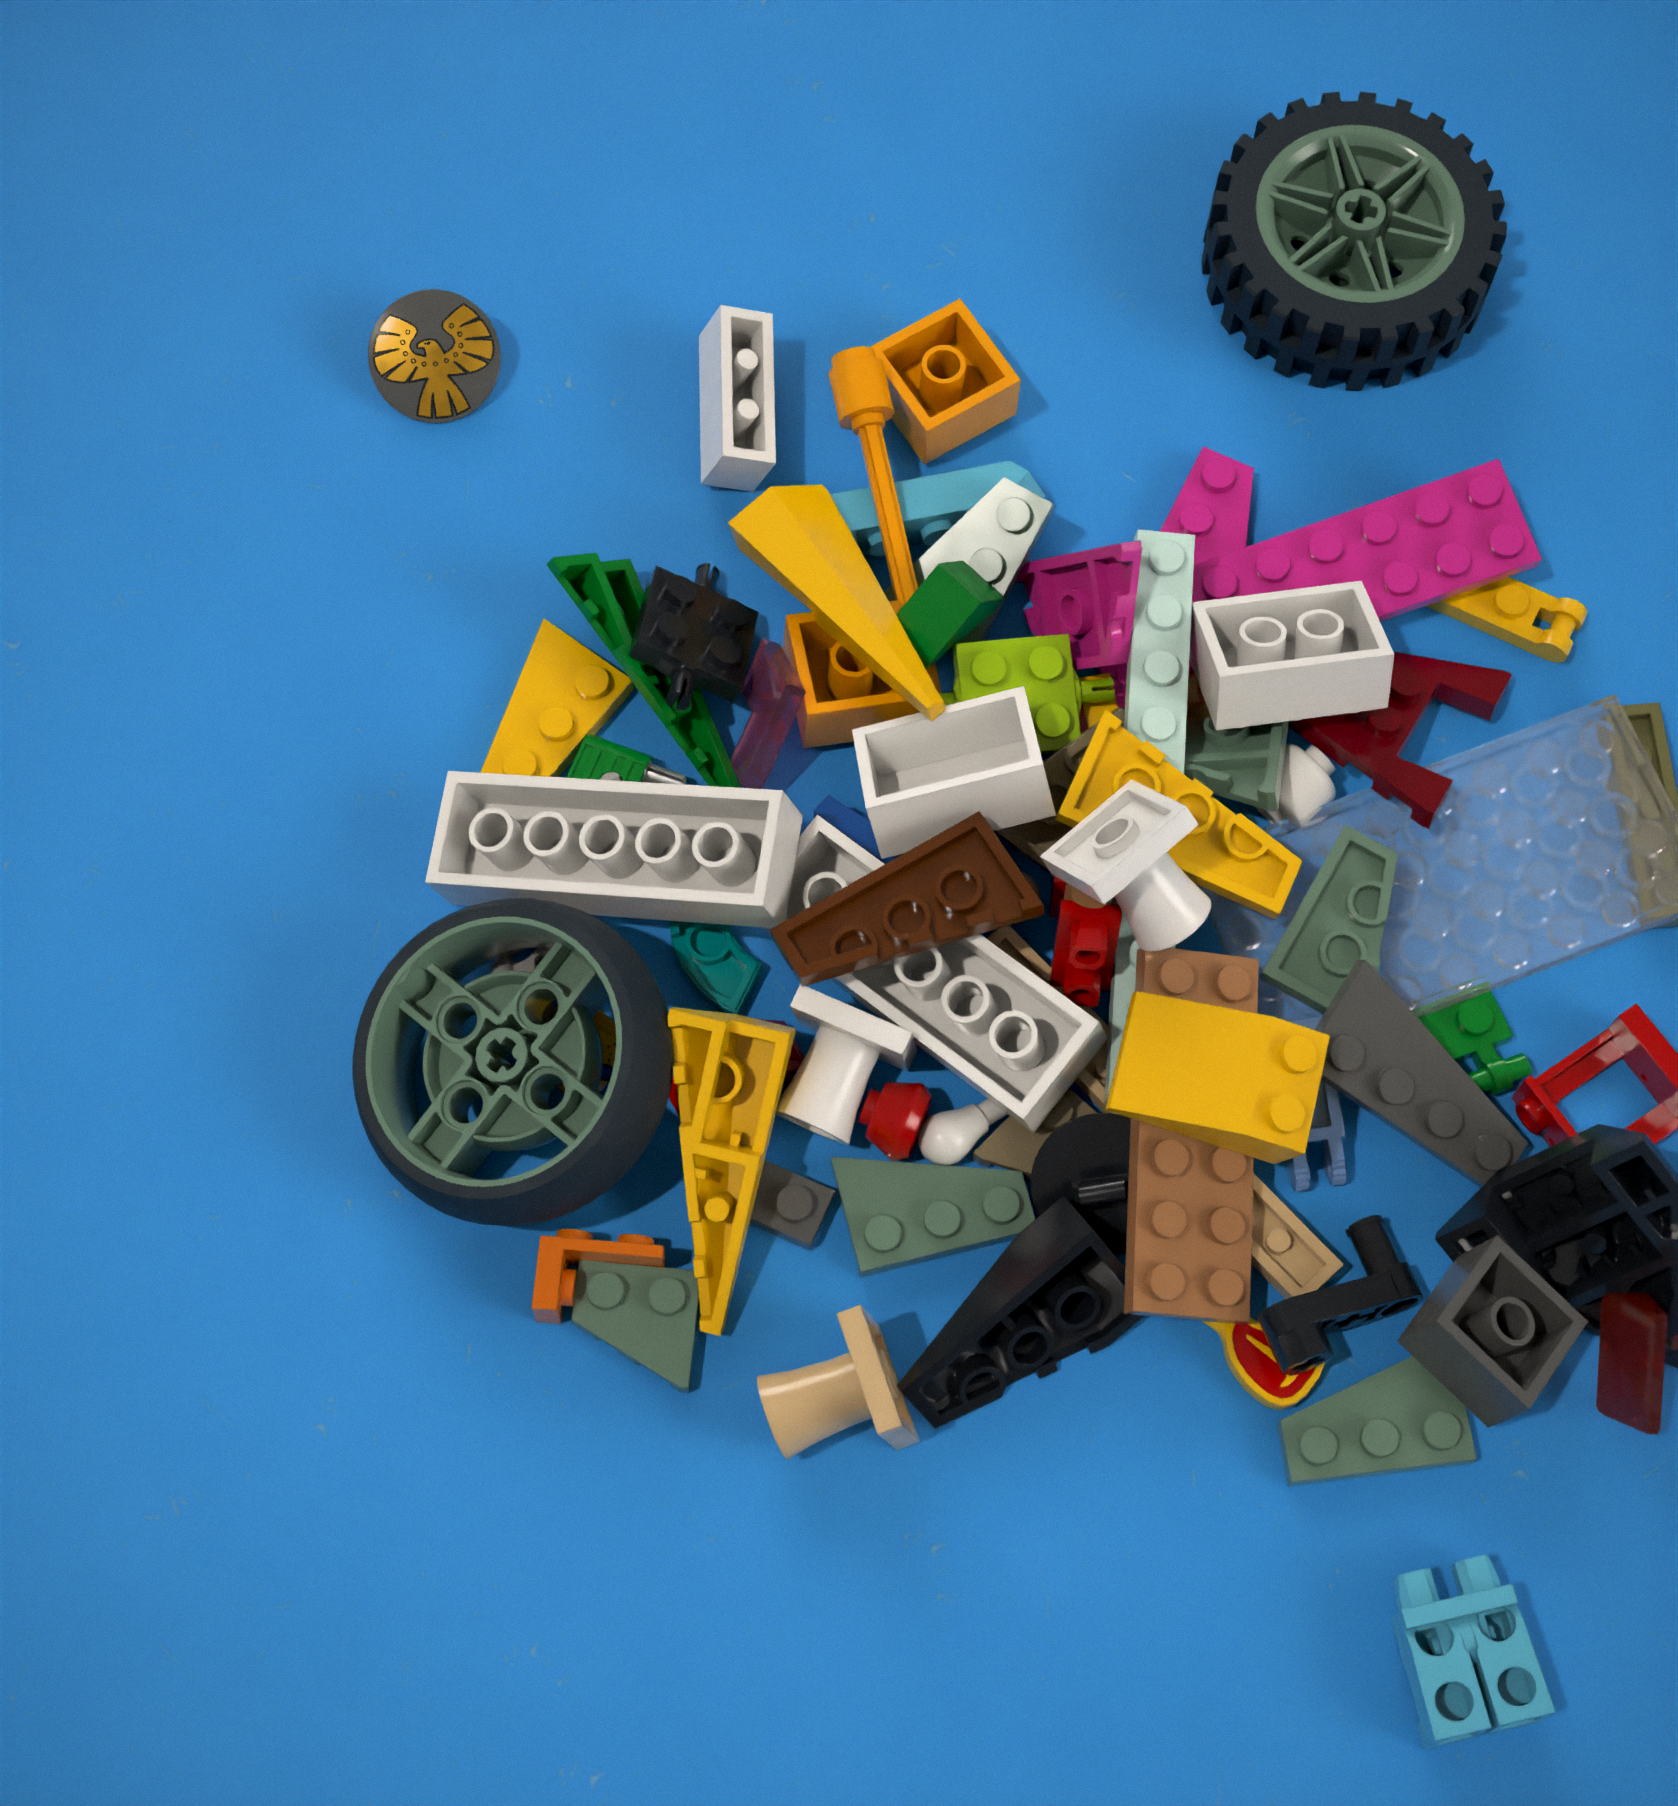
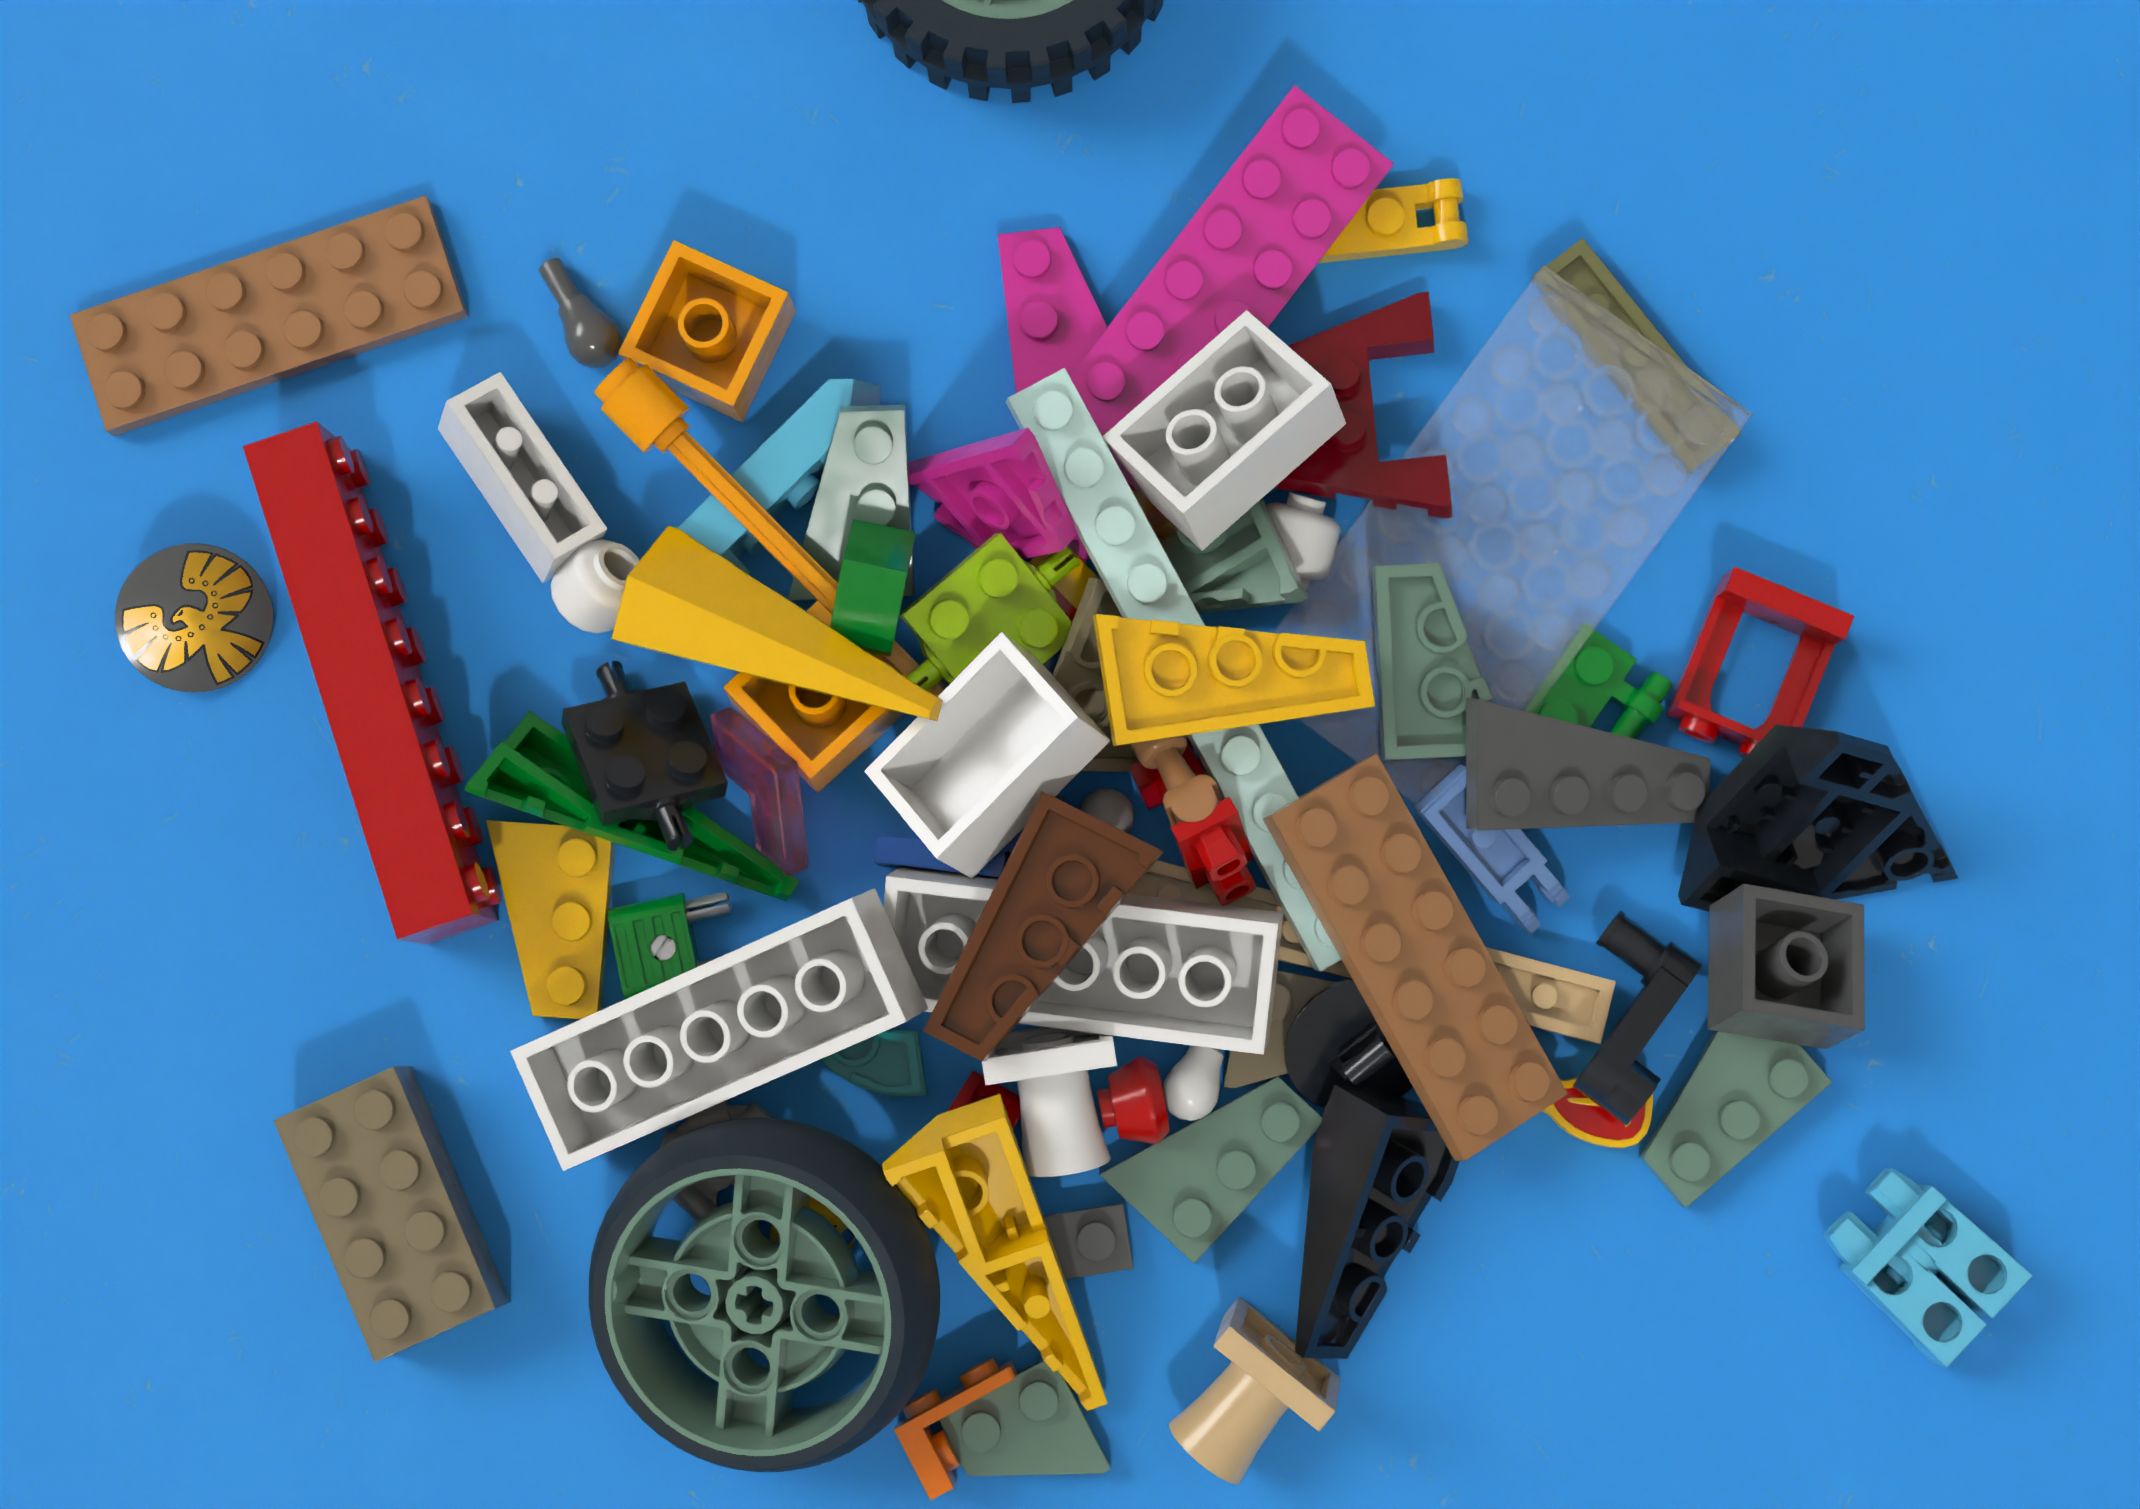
camera: 25 degrees left, 15 degrees up
(276, 844) = (391, 1211): none -> dark tan brick
(528, 473) = (373, 684): none -> red brick
(632, 200) = (268, 316): none -> medium nougat plate
(729, 494) = (592, 584): none -> white head
(854, 323) = (588, 331): none -> dark grey piece
(1125, 856) = (1211, 757): white plant -> none
(1219, 1075) = (1414, 903): yellow slope -> none
(1631, 1360) = (1919, 911): clear red slope -> none

